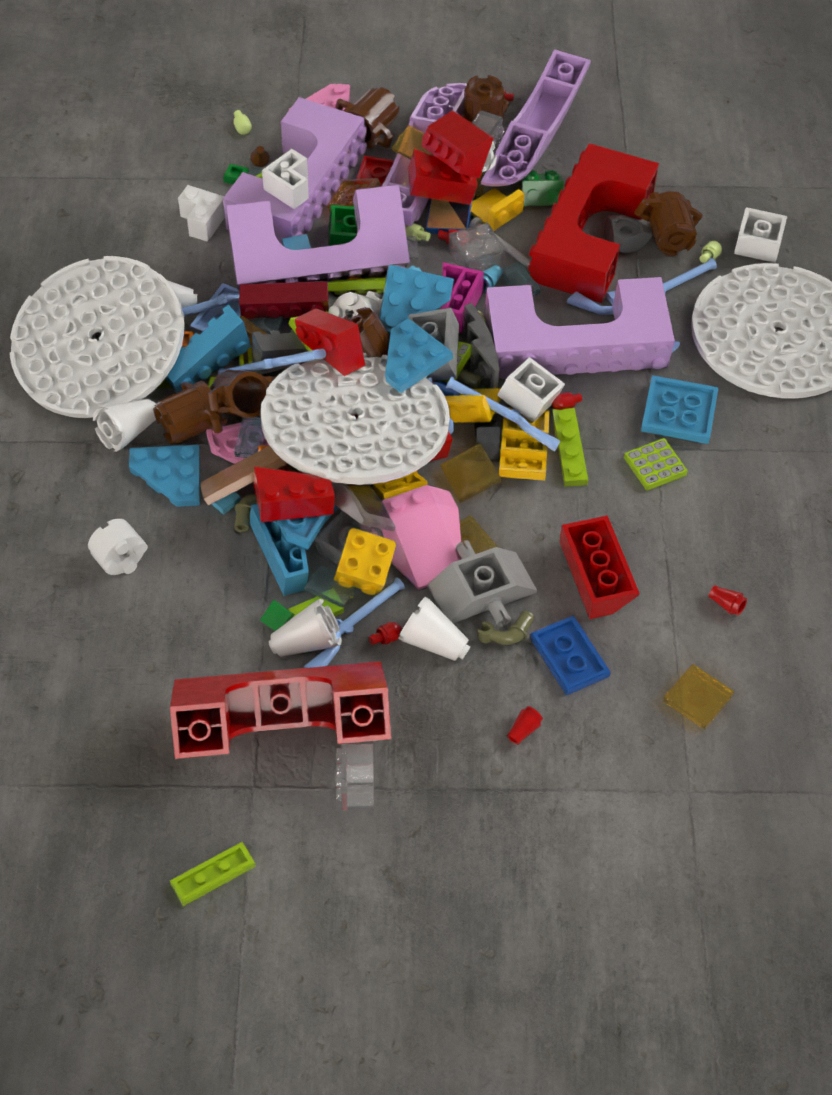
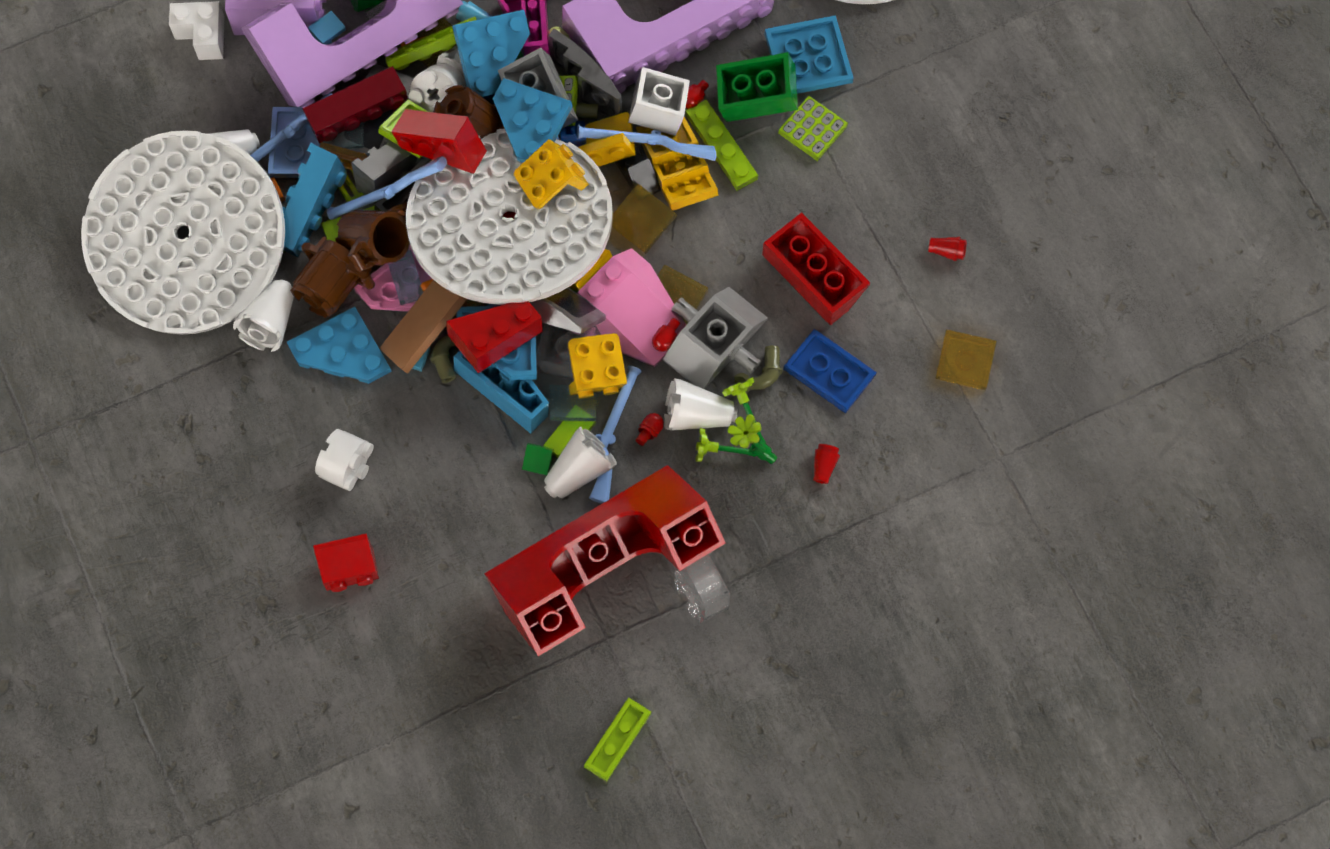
camera: 25 degrees left, 15 degrees up
(71, 625) = (346, 562): none -> red slope
(402, 392) = (548, 173): none -> yellow bracket
(438, 564) = (665, 336): none -> red cylinder
(460, 659) = (743, 434): none -> lime plant
(620, 411) = (757, 87): none -> green brick

